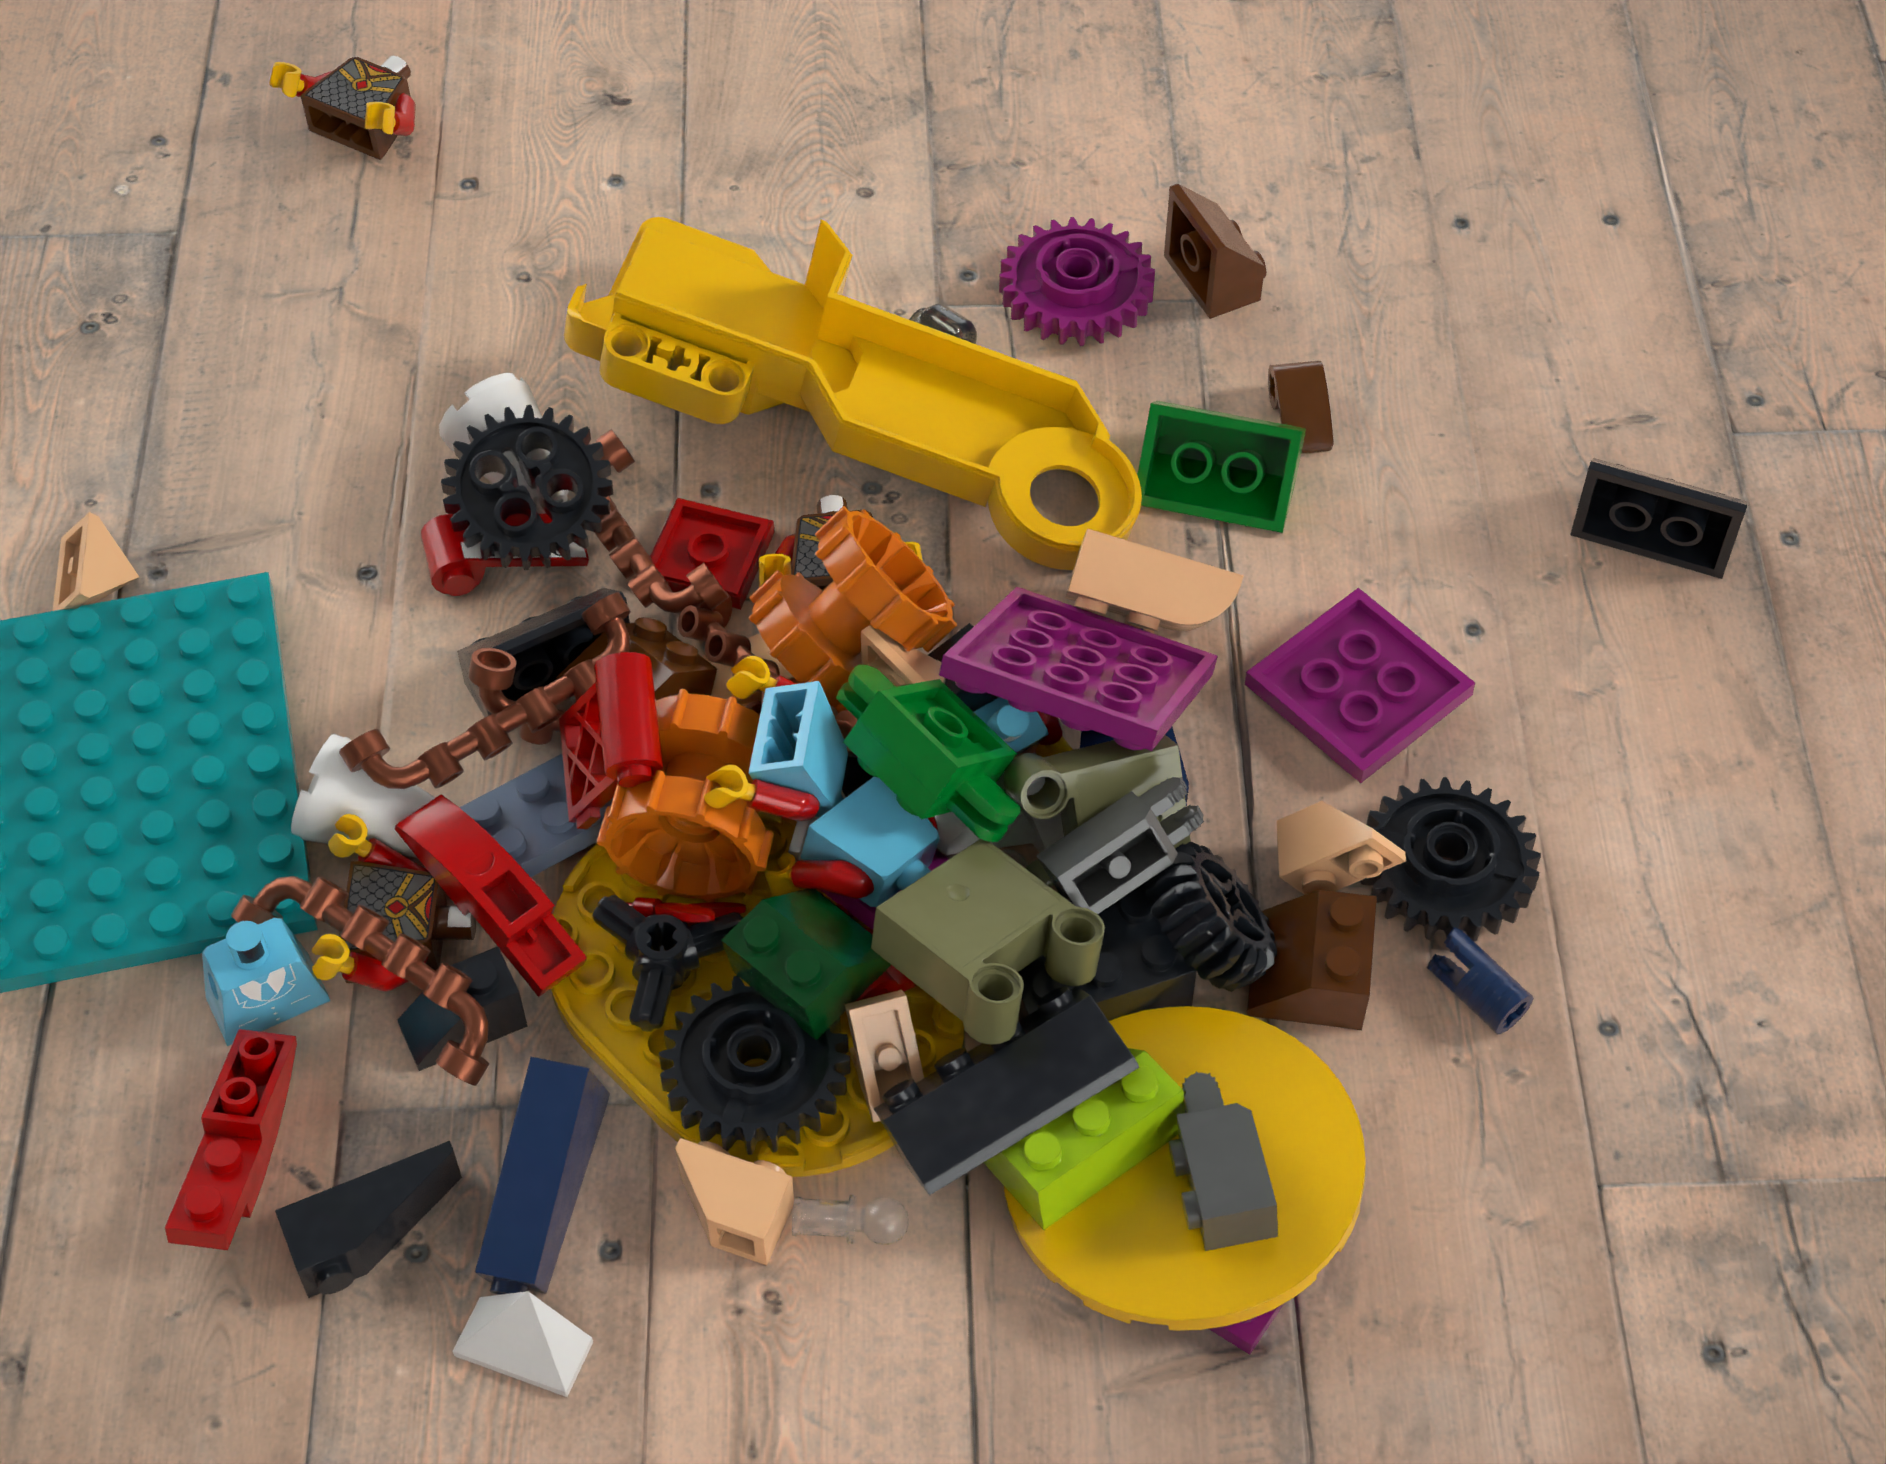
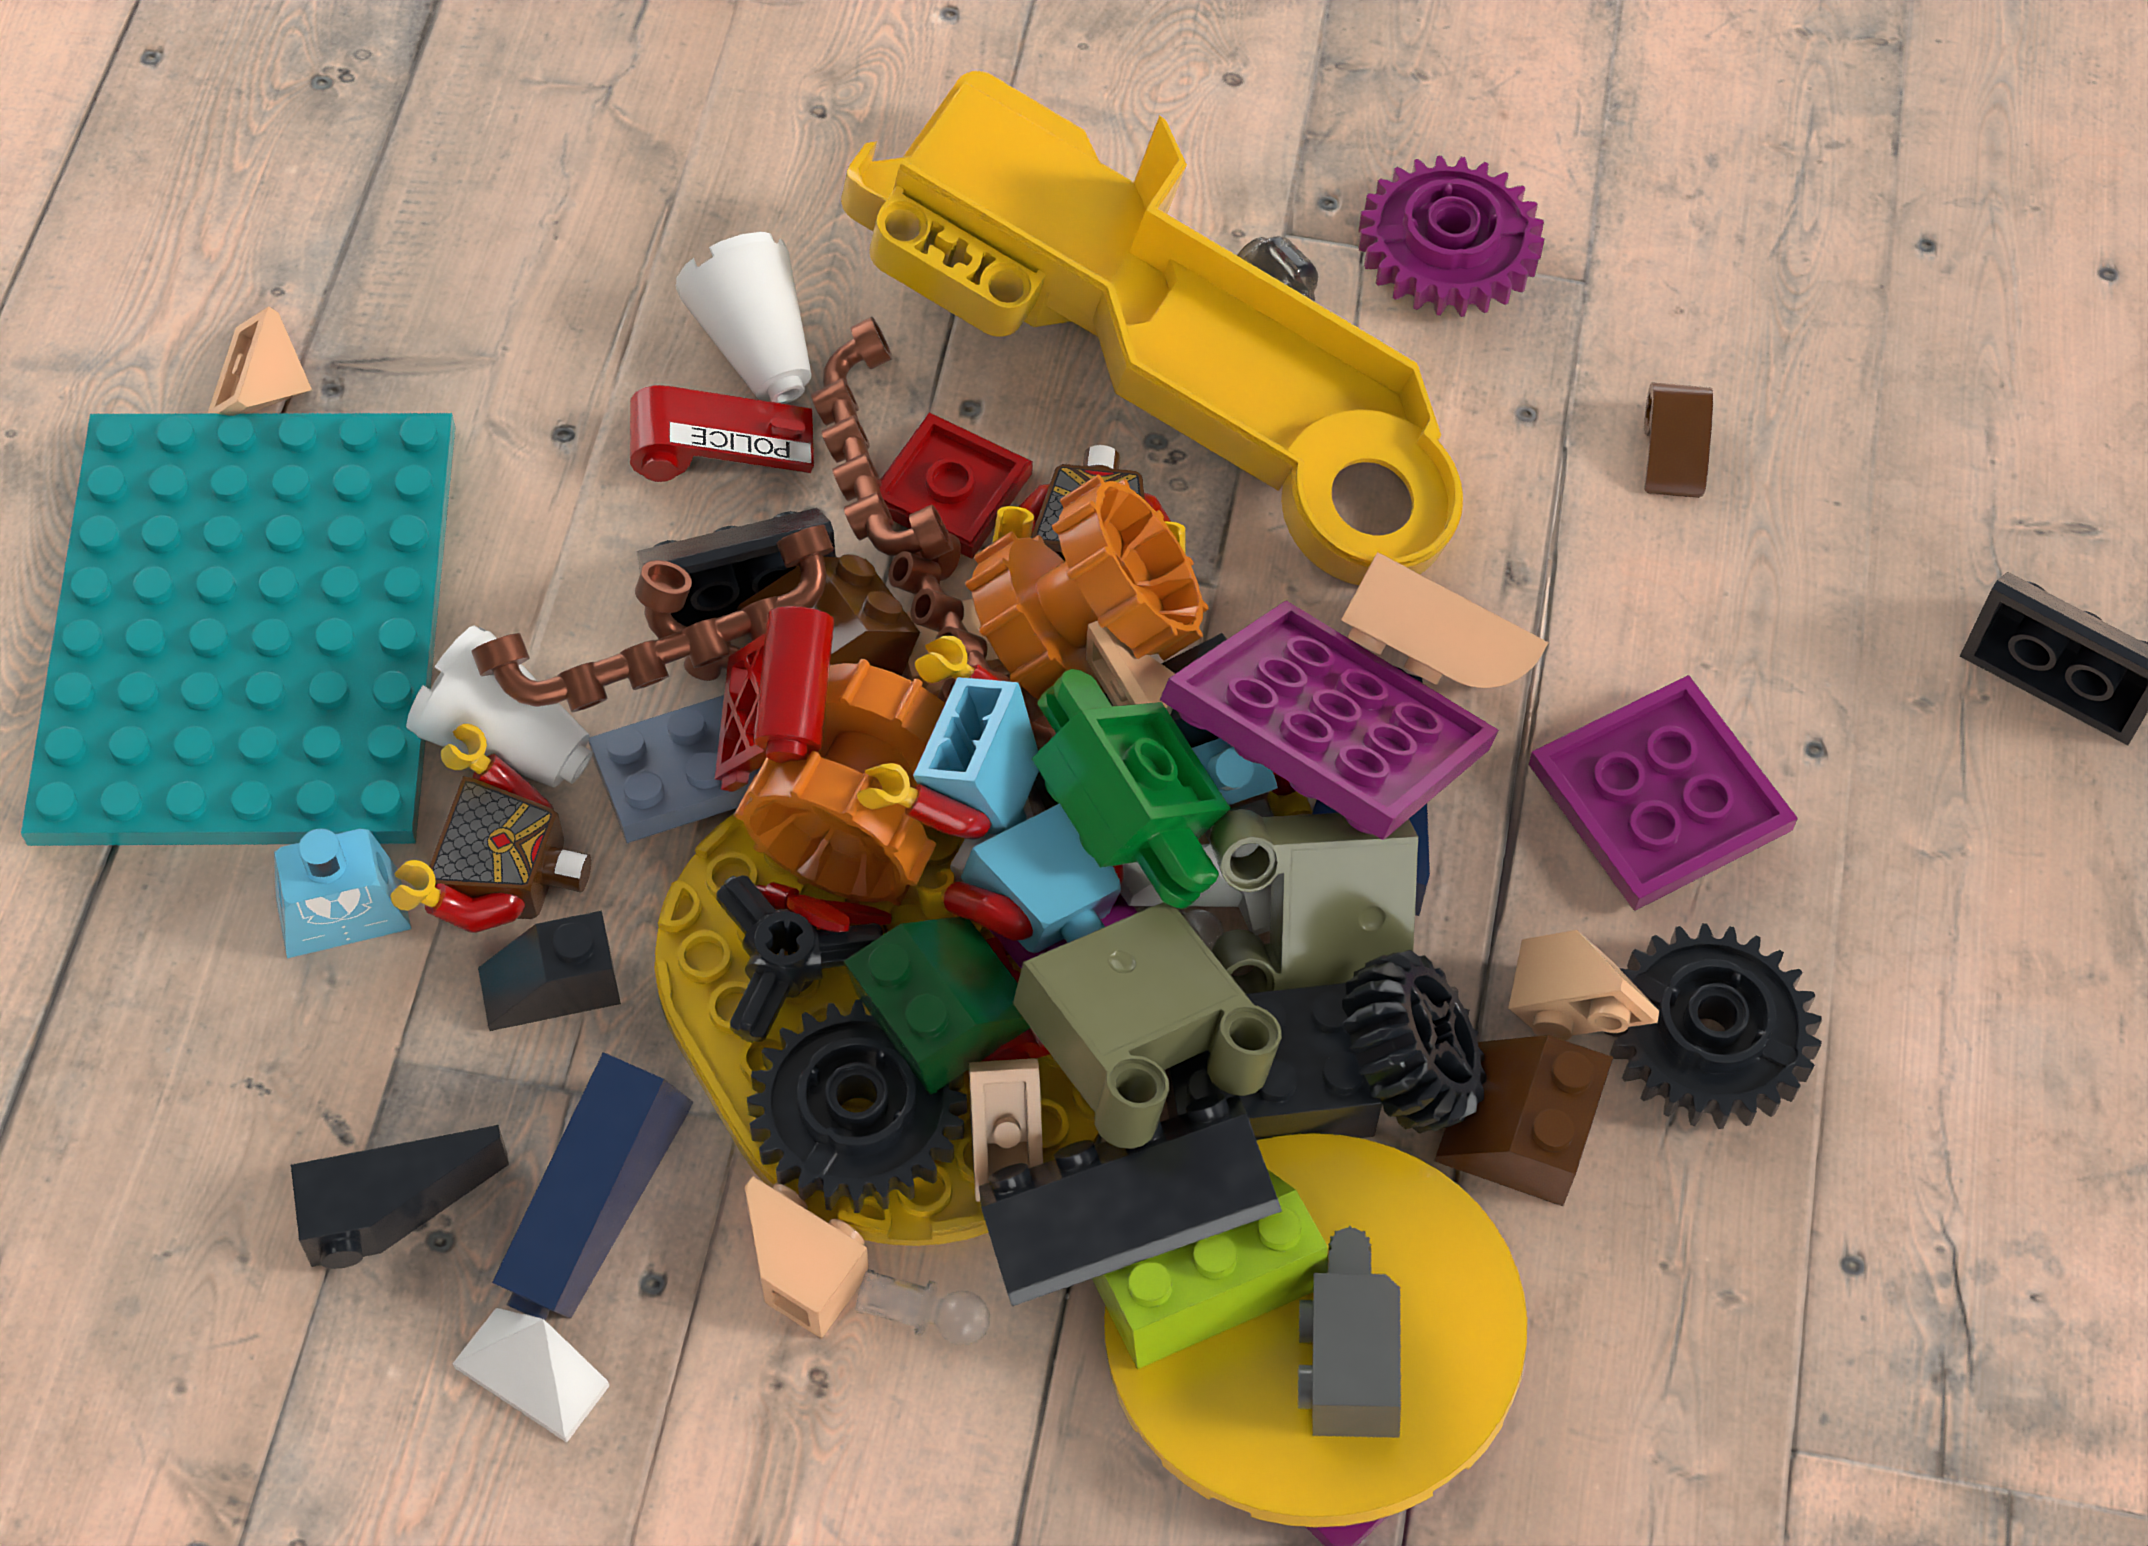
camera: 10 degrees right, 5 degrees up
(236, 1142) = (272, 1072): red slope -> none
(403, 958) = (488, 903): copper bar -> none
(485, 507) = (704, 387): black gear -> none
(494, 889) = (610, 845): red slope -> none
(1120, 846) = (1325, 943): dark grey hinge -> none
(1211, 254) = (1616, 231): reddish brown slope -> none
(1219, 465) = (1562, 493): green slope -> none
(1485, 987) = (1713, 1181): dark blue hinge -> none

